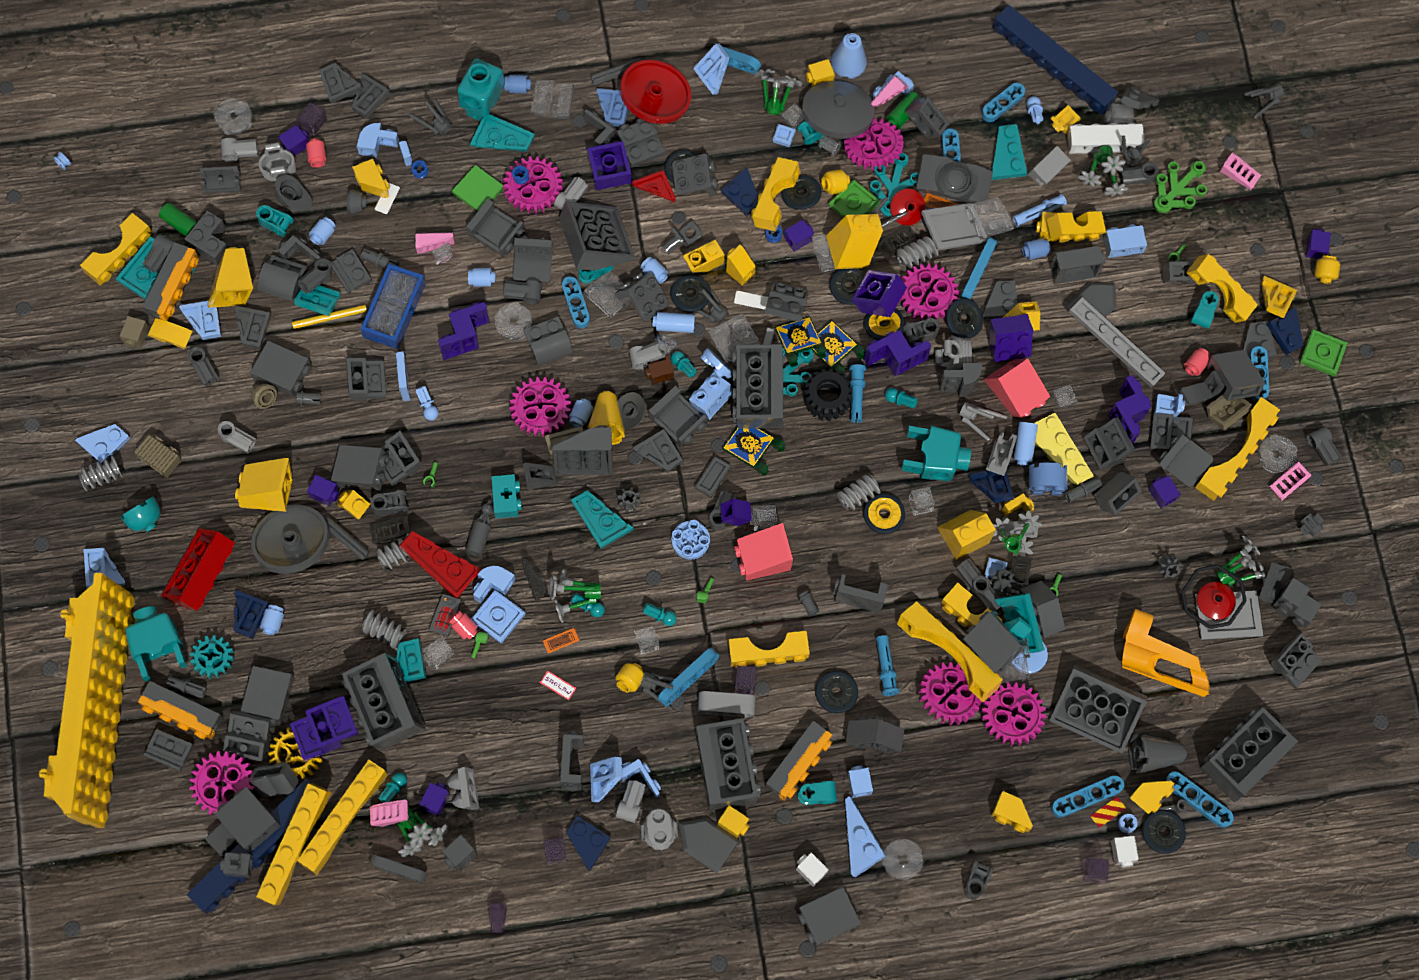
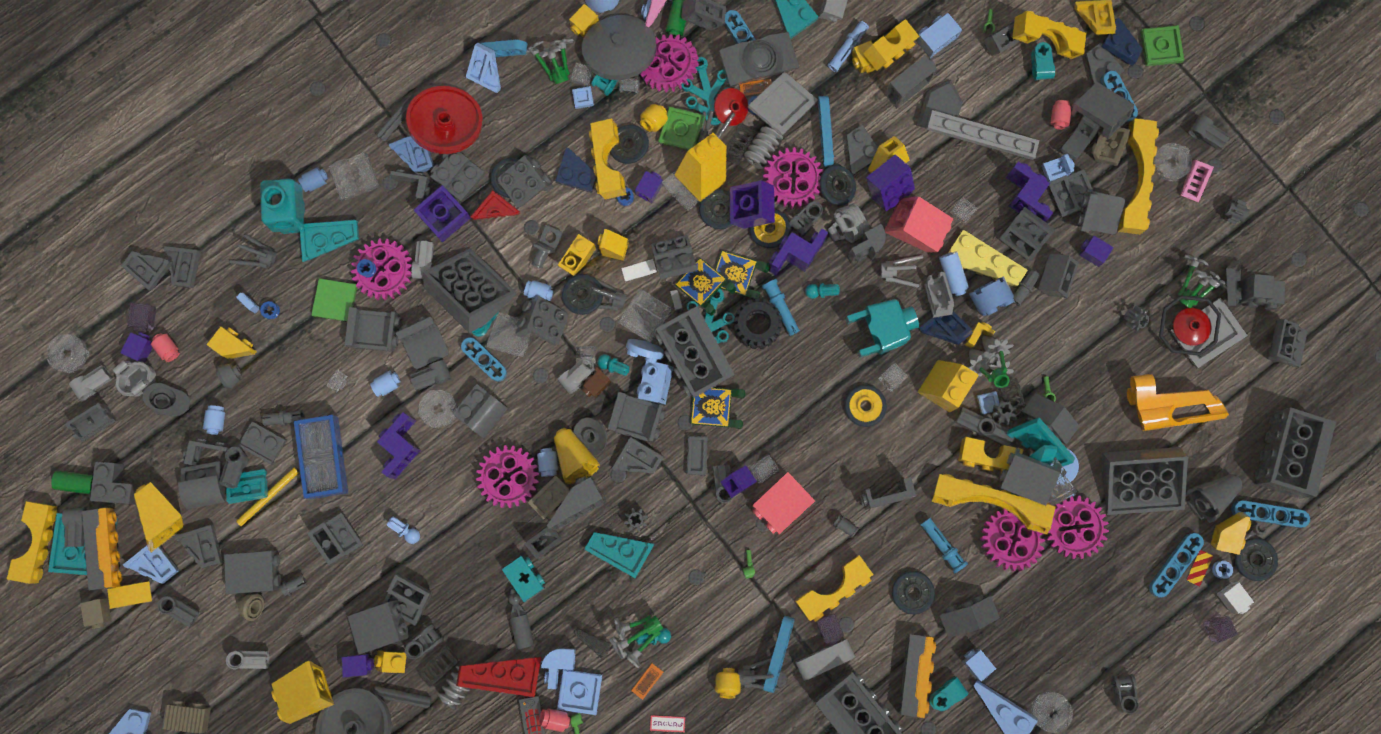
camera: 25 degrees left, 10 degrees up
(276, 222) = (166, 433): teal piece -> none
(372, 137) = (208, 304): light blue brick -> none
(385, 203) = (256, 361): white sticker -> none
(403, 376) = (368, 519): light blue tile -> none
(431, 241) = (319, 375): bright pink slope -> none
(431, 476) = (446, 594): bright green hand -> none
(646, 640) = (723, 641): clear brick -> none
(668, 618) = (730, 608): teal axle -> none
(674, 322) = (583, 330): light blue brick -> none
(690, 539) = (709, 525): light blue tile -> none
(858, 491) = (835, 398): light grey piece -> none
(989, 217) = (809, 77): clear slope -> none
(1012, 811) = (1119, 616): yellow slope -> none
(1036, 249) = (865, 84): medium blue brick -> none

